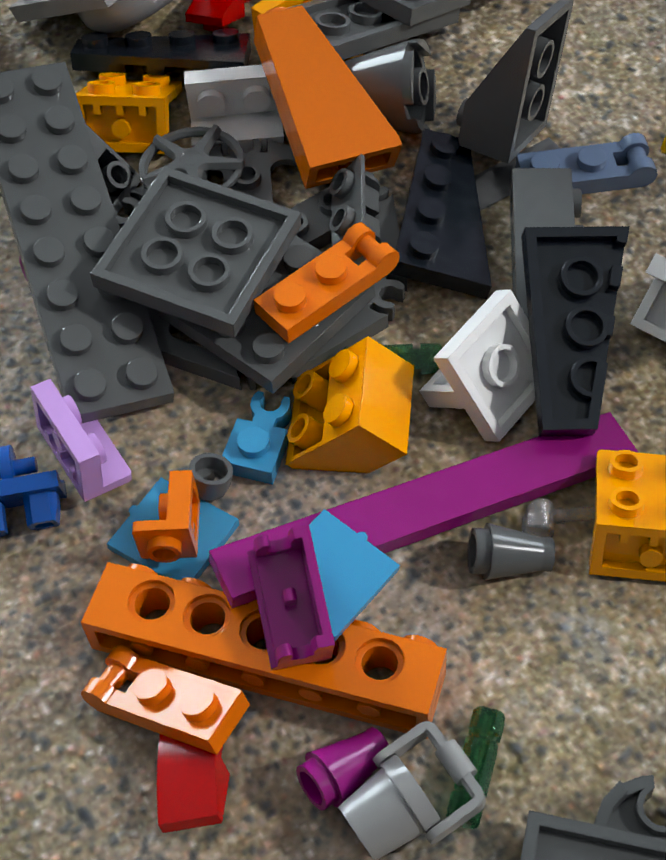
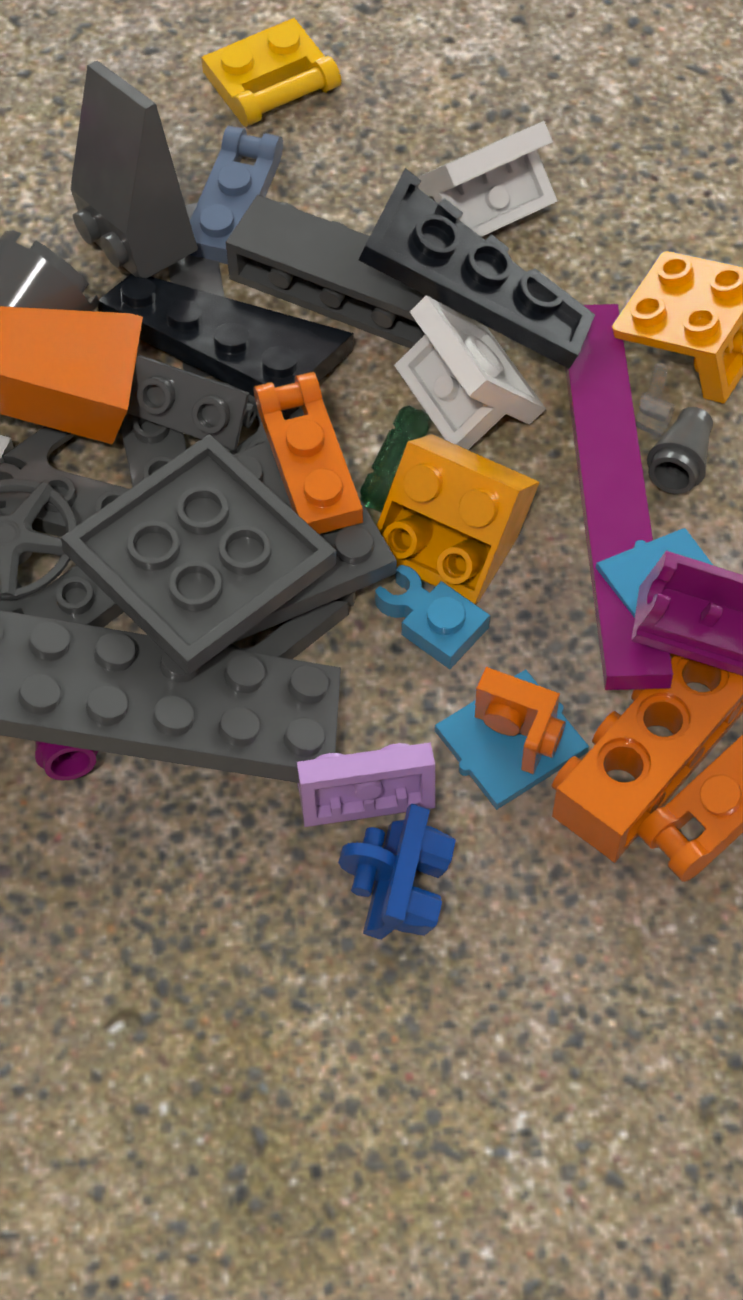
camera: 70 degrees left, 5 degrees up
(205, 469) = (462, 658): dark grey hinge -> none

